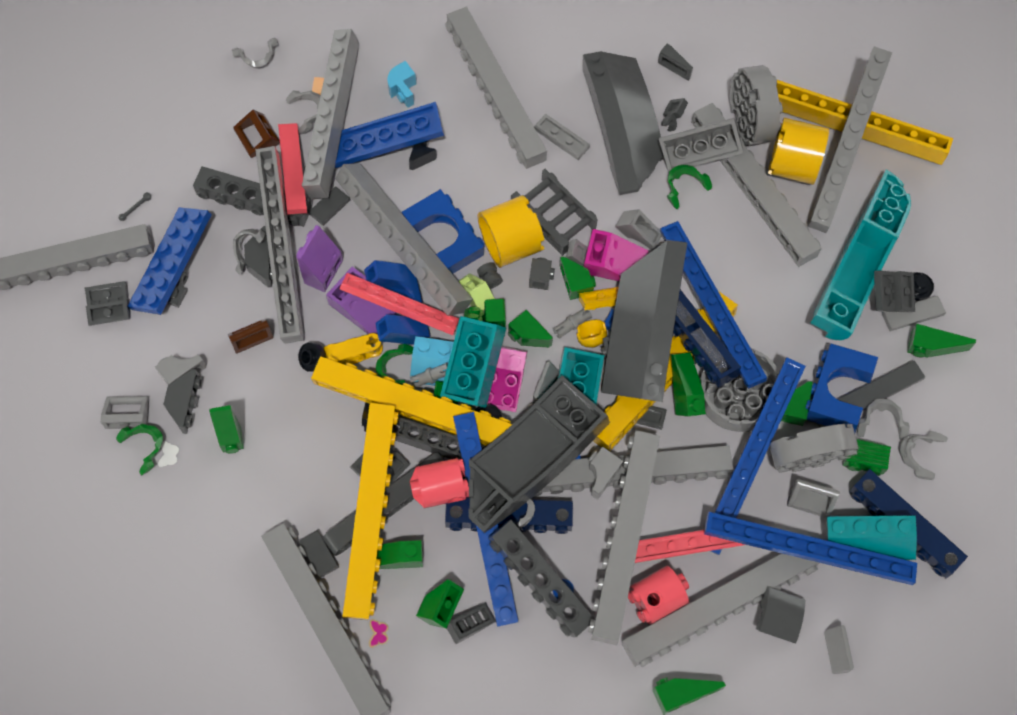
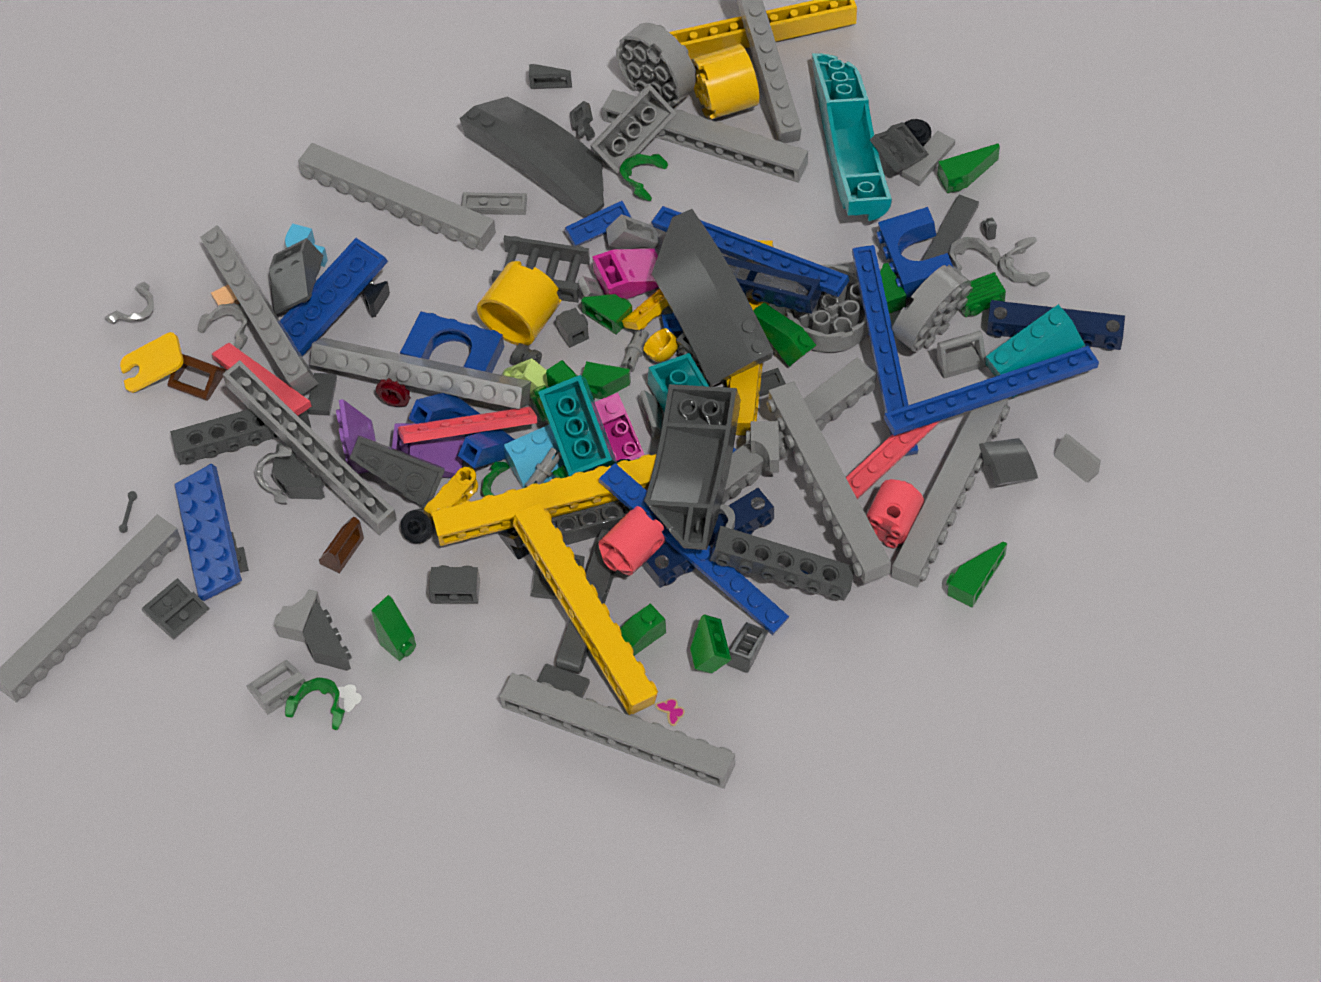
camera: 30 degrees left, 10 degrees down
(237, 104) = (154, 361): none -> yellow piece
(300, 421) = (454, 584): none -> dark grey brick
(329, 310) = (400, 470): none -> dark grey wing
(374, 102) = (294, 274): none -> dark grey slope
(374, 240) = (397, 397): none -> dark red gear
(621, 202) = (595, 224): none -> blue plate
(917, 404) = (989, 227): none -> dark grey tile

